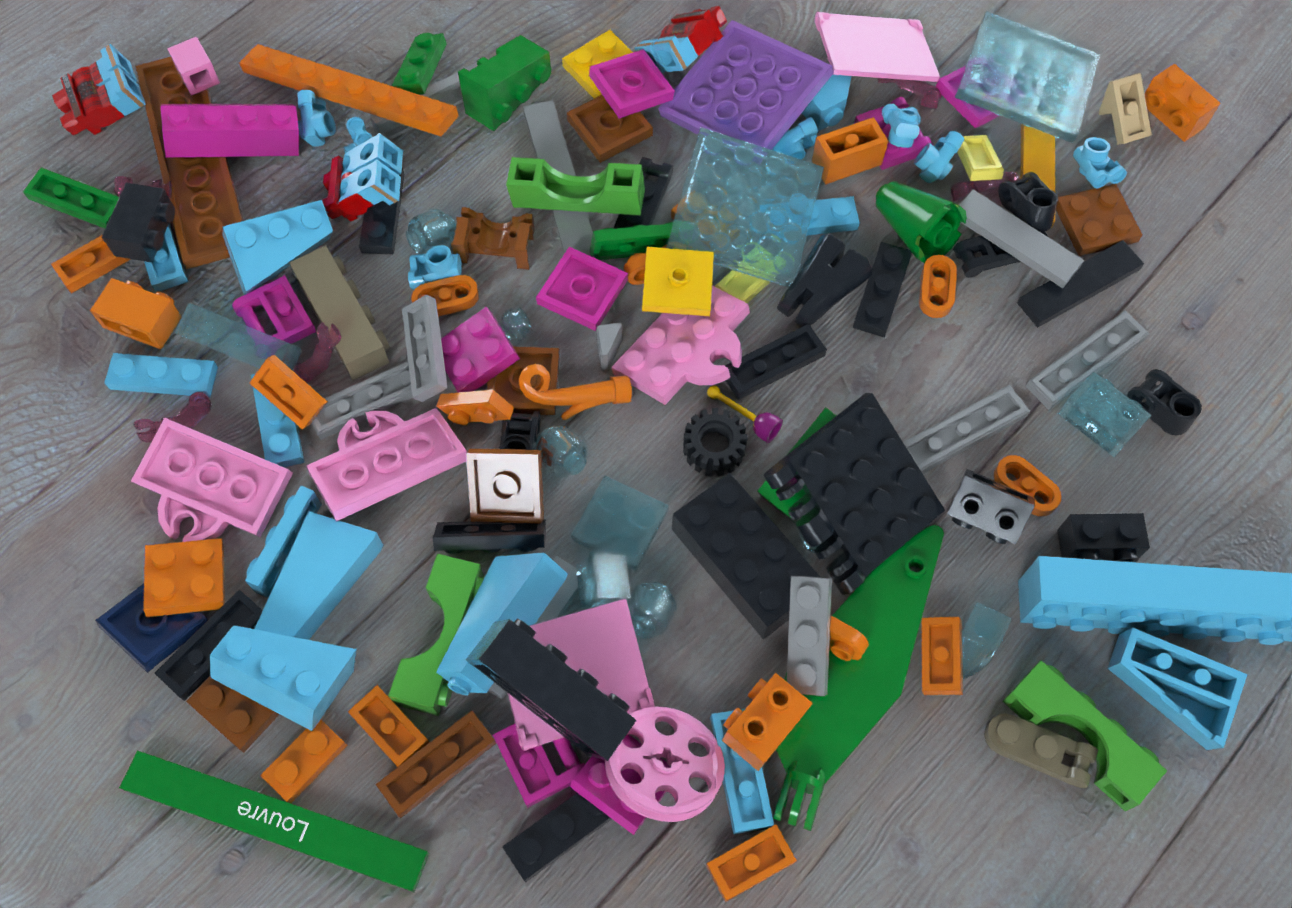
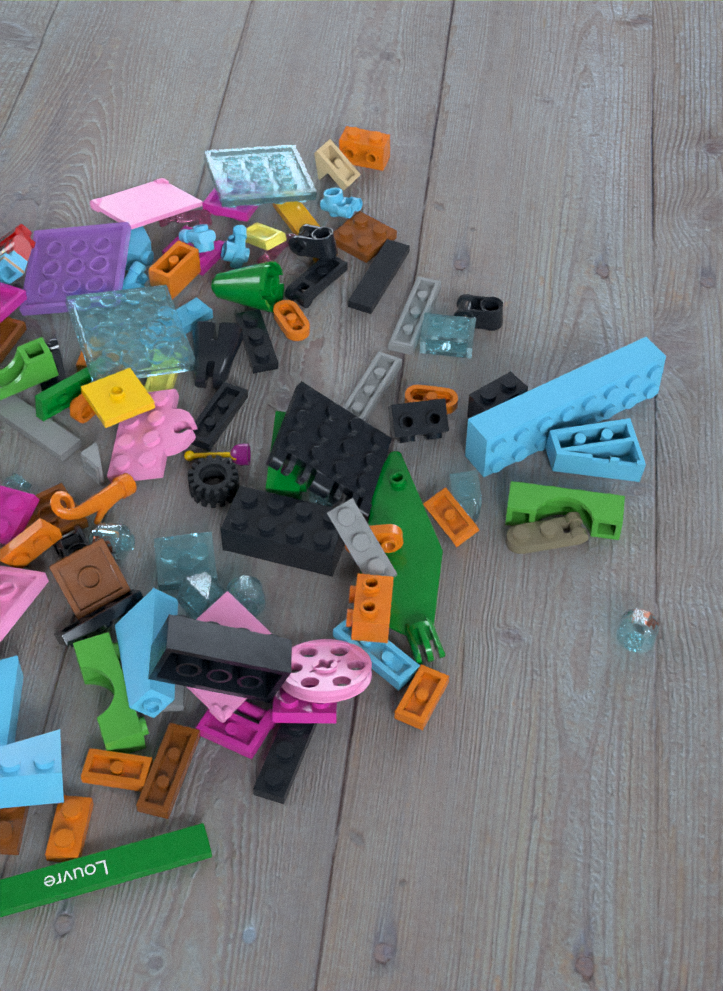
camera: 35 degrees left, 15 degrees down
(582, 288) = (50, 438): dark pink plate -> none
(1020, 239) = (324, 266): light grey tile -> none

